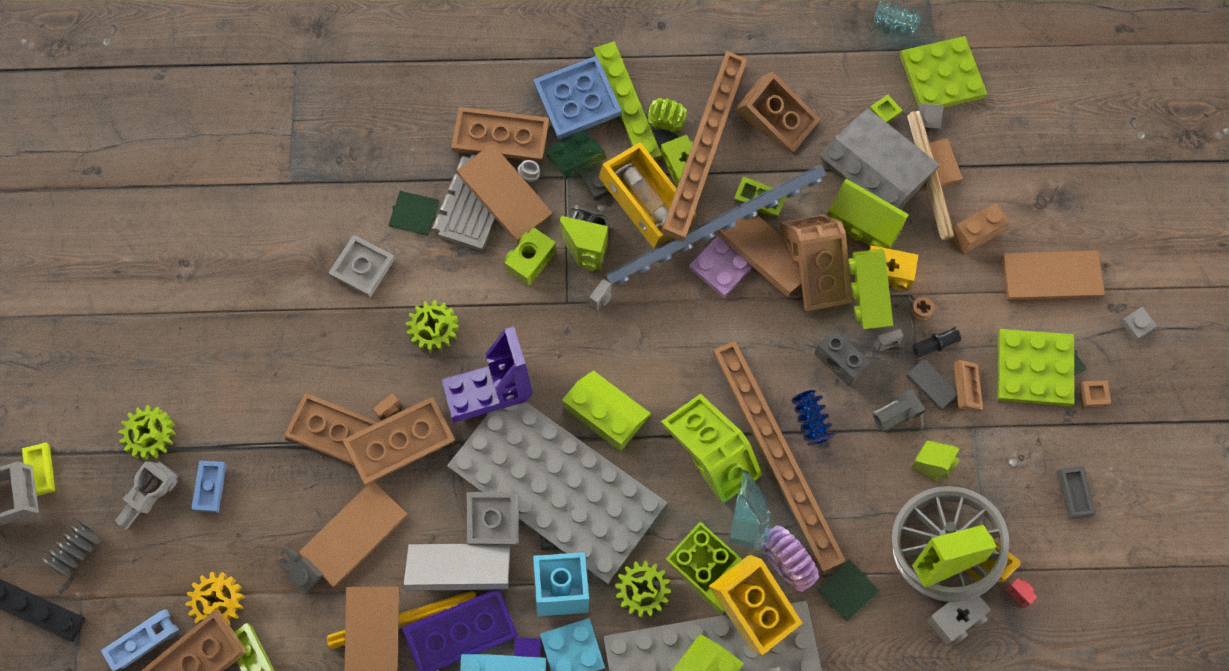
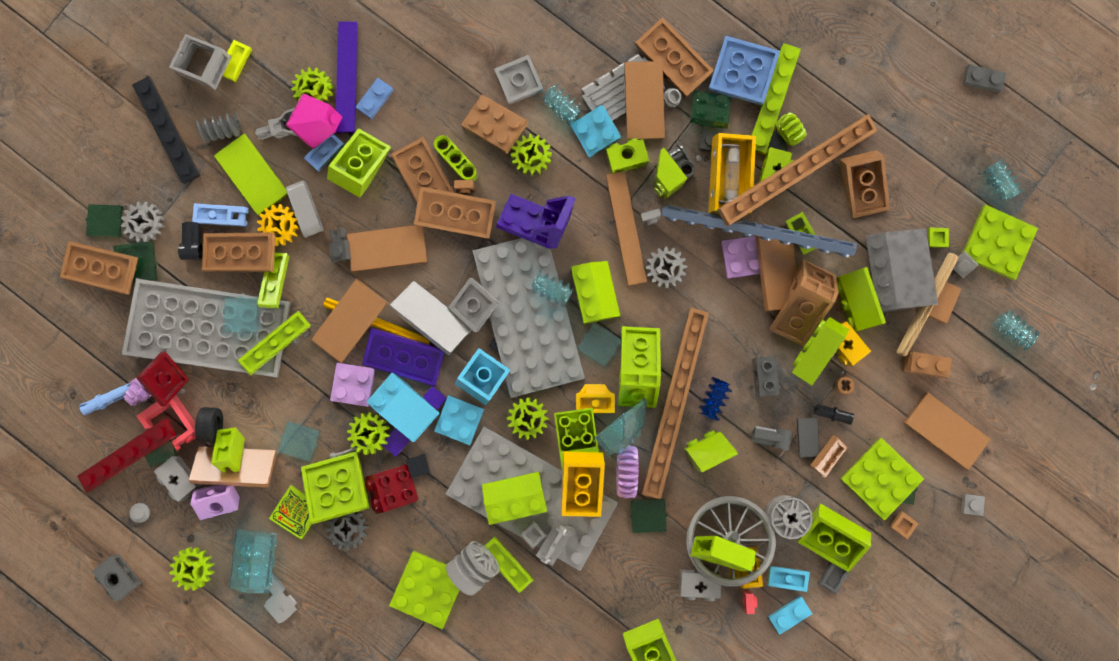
camera: 40 degrees right, 15 degrees up
(144, 571) = (251, 174): none -> lime tile
(175, 460) = (313, 120): none -> dark pink slope
(177, 396) = (347, 76): none -> dark purple tile
(223, 394) = (374, 98): none -> medium blue plate
(231, 561) = (304, 208): none -> light grey beam
(255, 470) = (358, 162): none -> lime slope
(348, 382) = (452, 151): none -> lime beam
(370, 324) = (494, 124): none -> medium nougat plate
(413, 213) = (578, 68): clear green piece -> none
(430, 256) = (562, 104): none -> clear light blue piece
(480, 256) = (596, 131): none -> medium azure plate
(561, 435) = (551, 288): none -> clear light blue piece
(586, 325) = (626, 228): none -> medium nougat tile
(653, 458) = (599, 344): none -> clear light blue piece
(664, 336) = (662, 259): none -> light grey gear
(695, 510) = (596, 397): none -> yellow slope
(851, 470) = (709, 451): none -> lime slope
(888, 340) = (805, 389): light grey tile -> none
(936, 460) = (767, 485): lime slope -> none
(969, 472) = (777, 513): none -> light grey wheel
(1029, 133) = (1017, 328): none -> clear light blue piece
(1037, 536) = (788, 578): none -> medium azure plate
(1044, 458) = (836, 538): none -> lime slope
(1071, 573) = (789, 615): none -> medium azure plate

